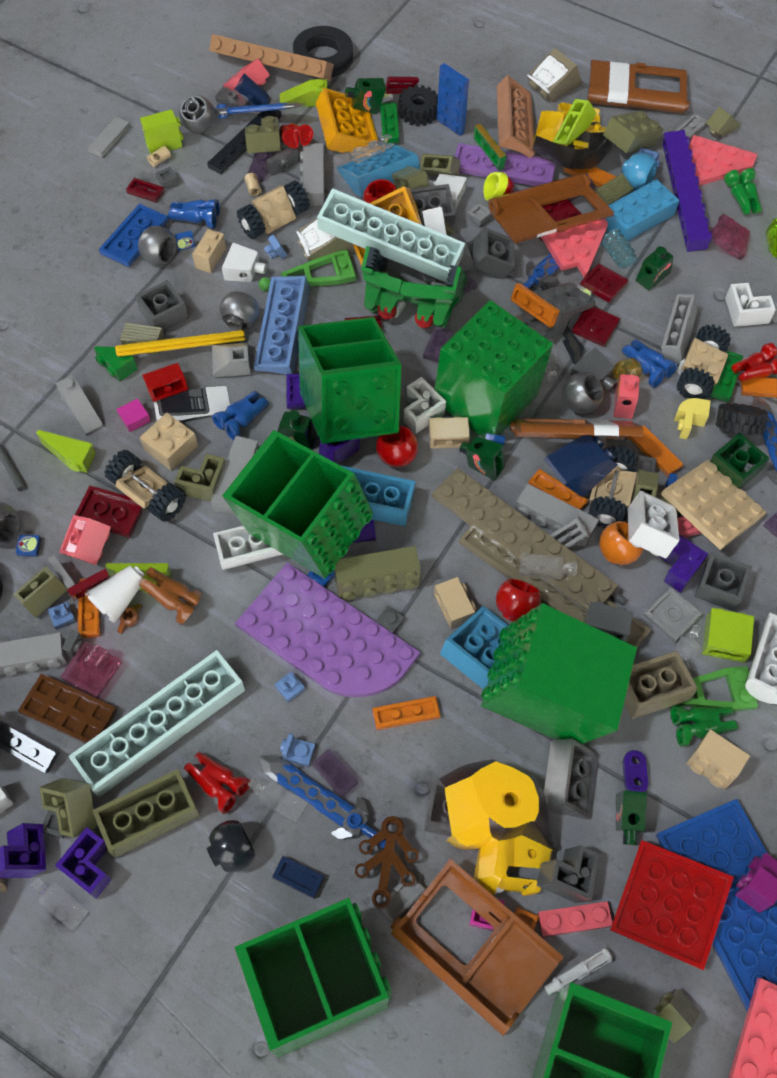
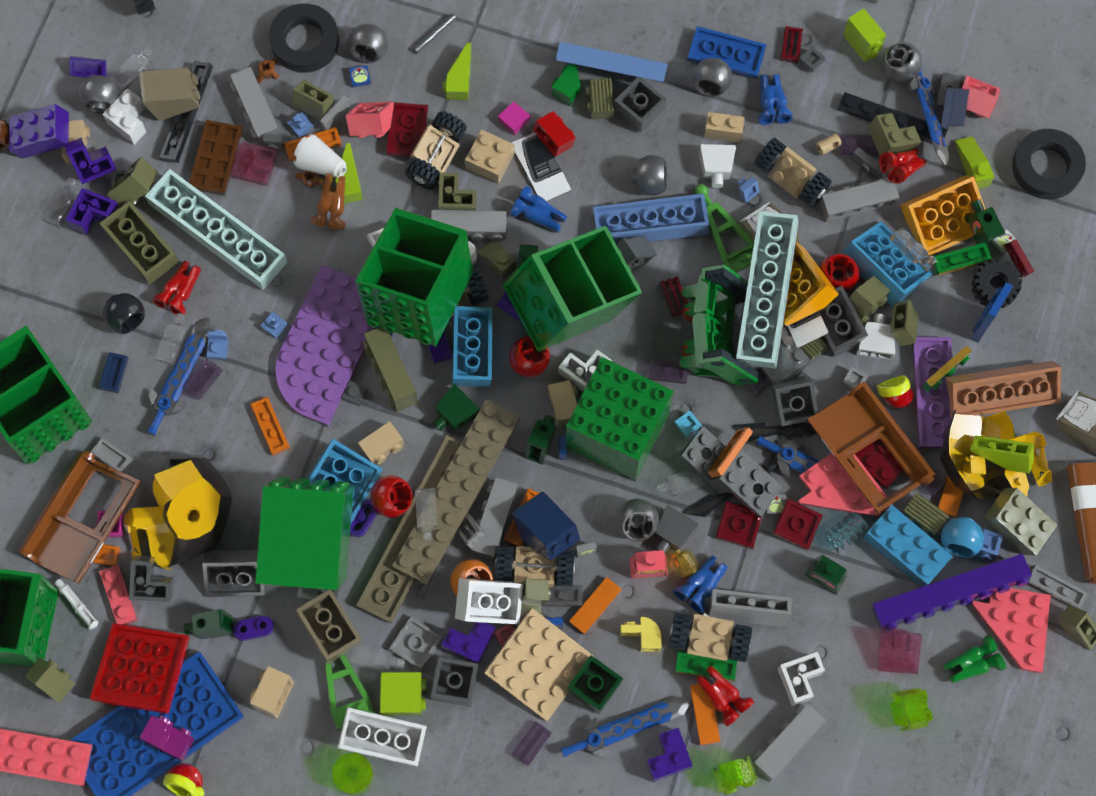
camera: 75 degrees right, 10 degrees up
(79, 405) = (511, 68): light grey slope -> none
(79, 589) = (322, 135): dark red tile -> none
(108, 315) = (611, 61): none -> medium blue arch
(158, 156) = (839, 43): tan piece -> none
(179, 343) = (600, 134): yellow axle -> none
(184, 240) = (732, 100): blue tile -> none
(231, 359) = (599, 185): light grey slope -> none
(271, 57) = (1011, 112): medium nougat brick -> none
(387, 857) = (136, 436): reddish brown plant -> none
(432, 527) = (455, 410): none -> dark green torso
(511, 282) = (760, 429): none -> black sword
(574, 428) = (586, 539): dark orange piece -> none
(609, 619) = (375, 573): dark grey brick -> none
(703, 720) = (311, 683): green piece -> none
(741, 418) = (654, 678): black tyre -> none

